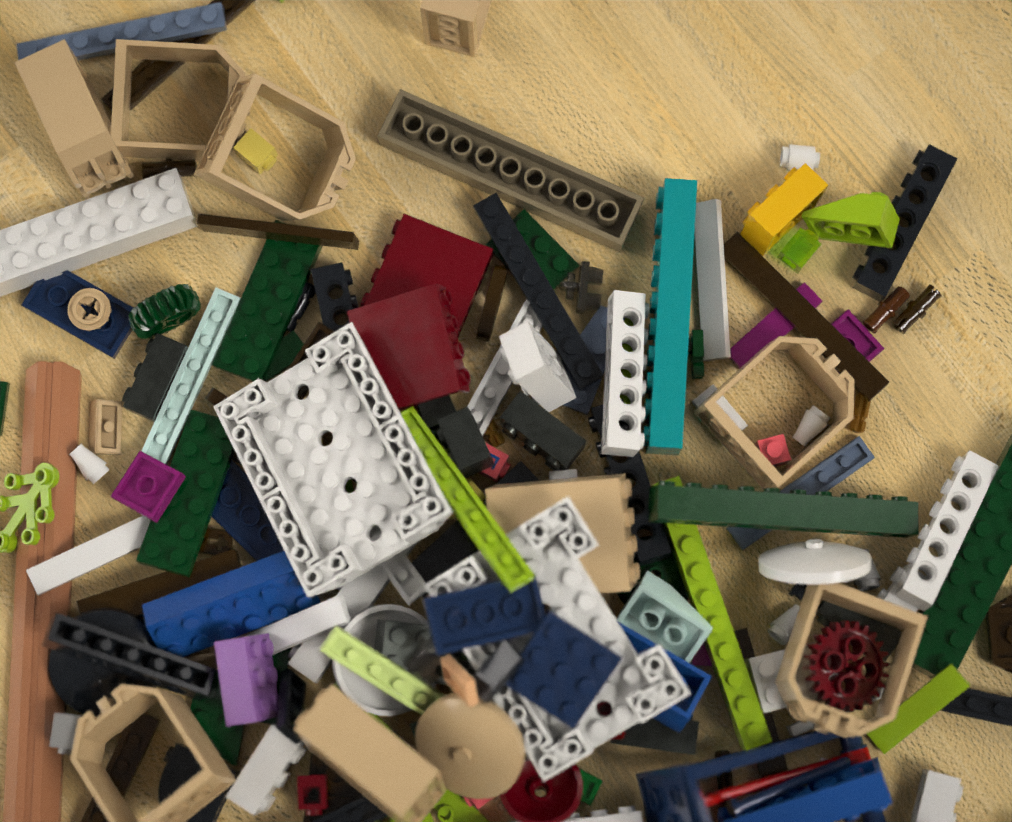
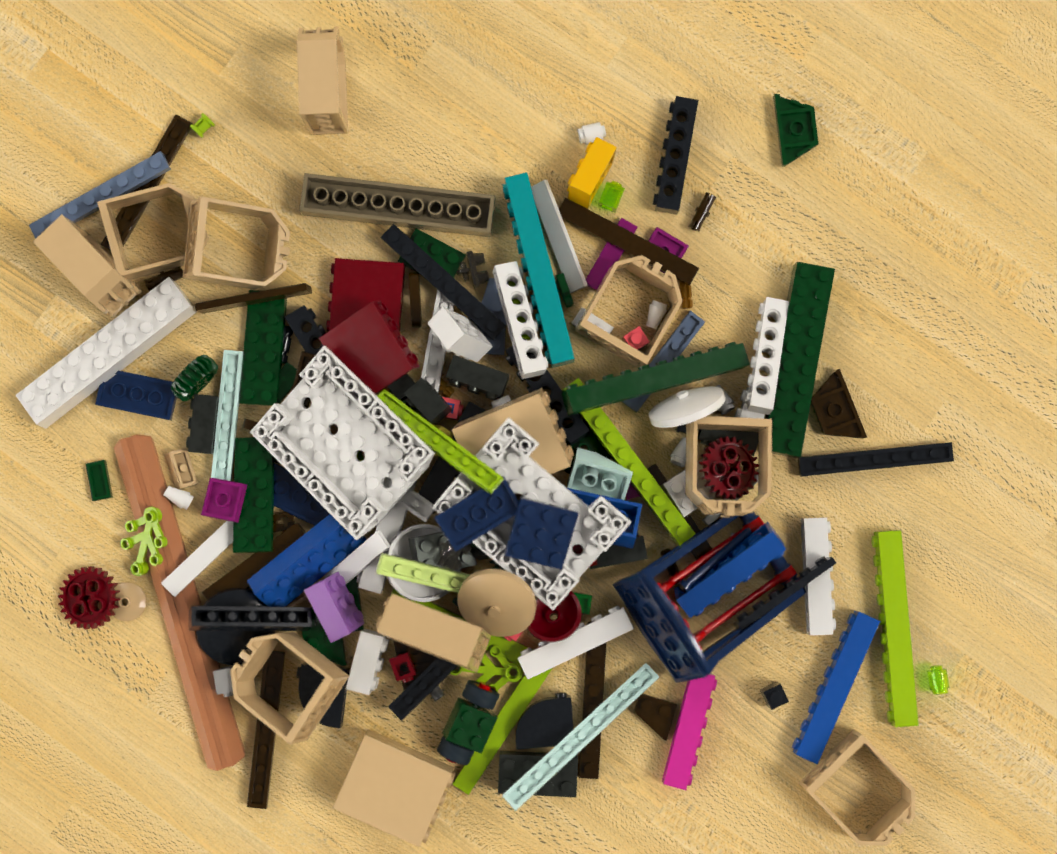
camera: 20 degrees left, 5 degrees up
(88, 297) = (138, 385): tan gear -> none
(256, 151) = (220, 247): light yellow brick -> none
(291, 703) = (368, 613): black tile -> none
(459, 680) = (475, 562): light nougat tile -> none
(497, 670) = (498, 548): black tile -> none
(855, 220) = (642, 164): lime slope -> none
(886, 309) = (682, 218): reddish brown axle -> none
(920, 708) = (786, 479): lime tile -> none

